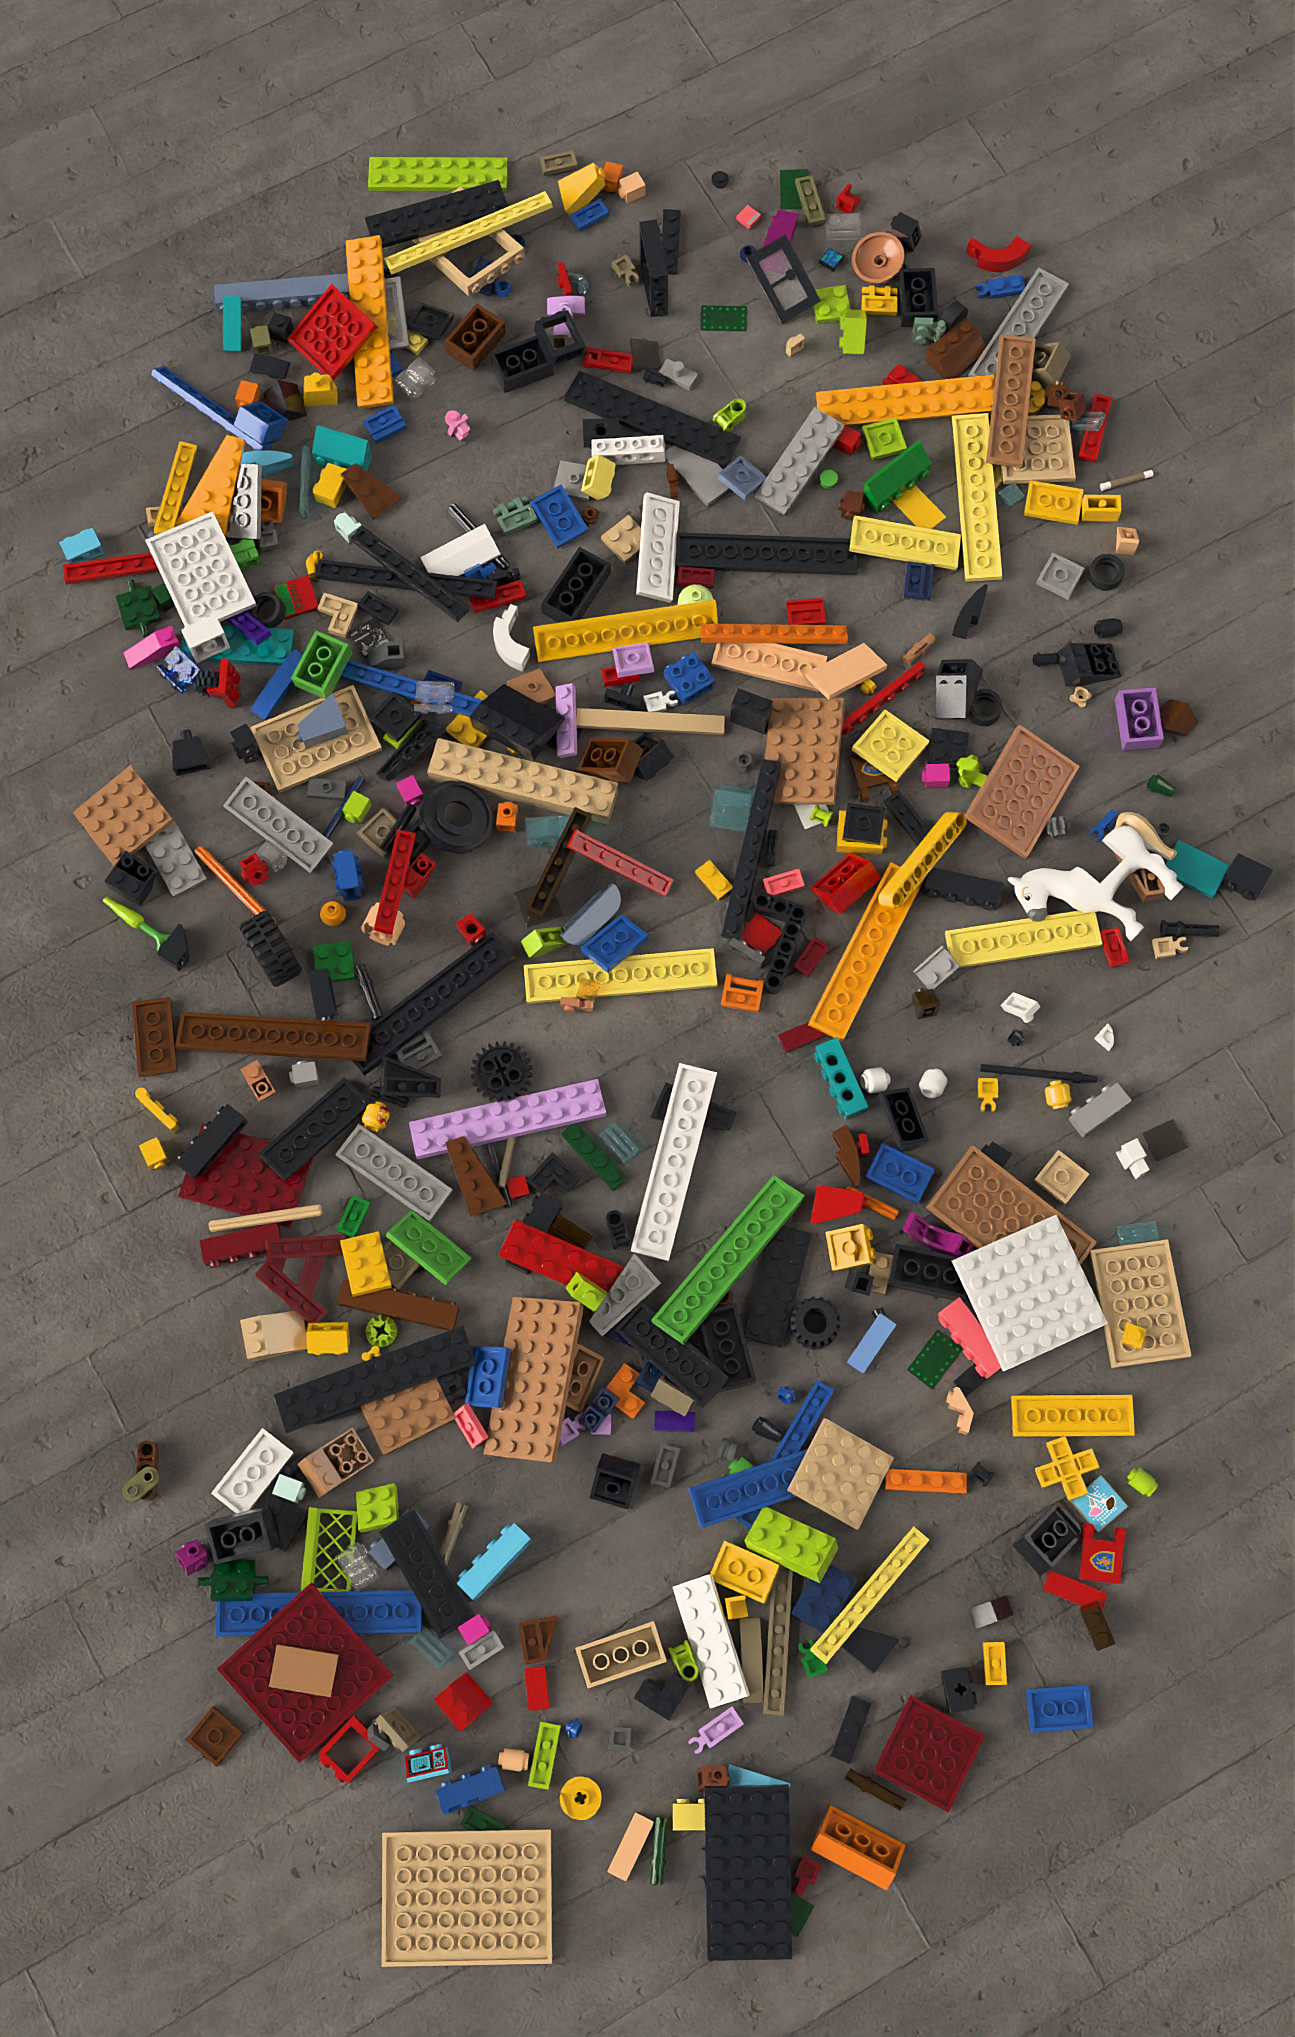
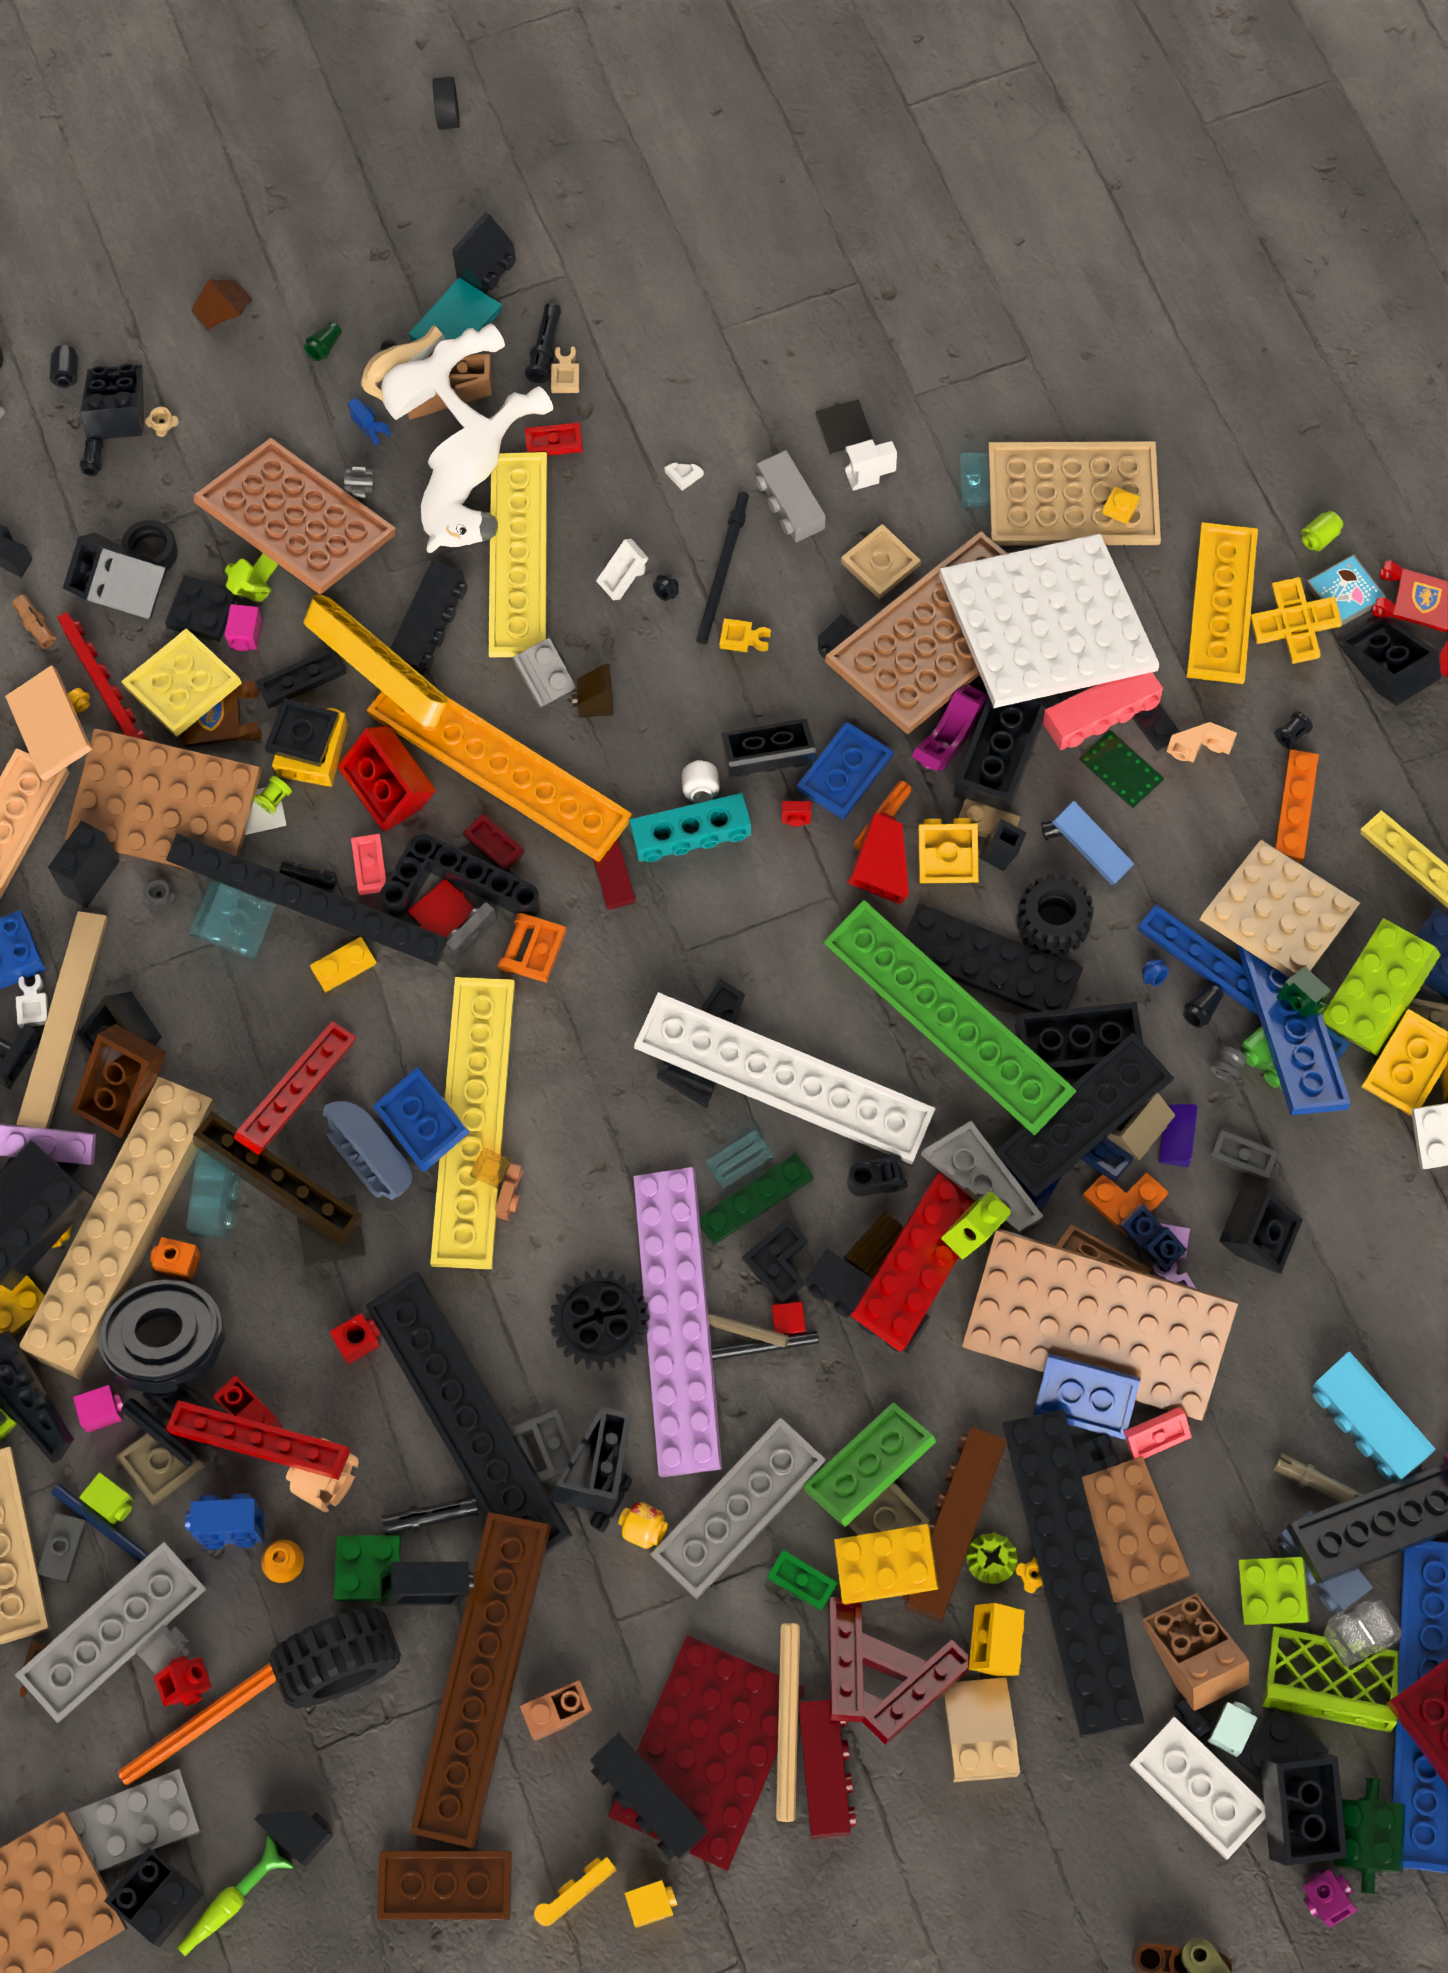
camera: 80 degrees left, 5 degrees down
(304, 1074) = (552, 1634): light grey brick -> none
(314, 1129) = (651, 1625): black plate -> none
(475, 1183) = (773, 1379): reddish brown wing -> none
(543, 941) = (396, 1228): lime slope -> none
(776, 1491) = (1305, 993): none -> dark green brick
(848, 1155) = (809, 835): reddish brown slope -> none
(933, 1083) = (717, 704): white head -> none
(1058, 1094) = (760, 545): yellow head -> none
(1139, 719) = (216, 348): medium lavender brick -> none

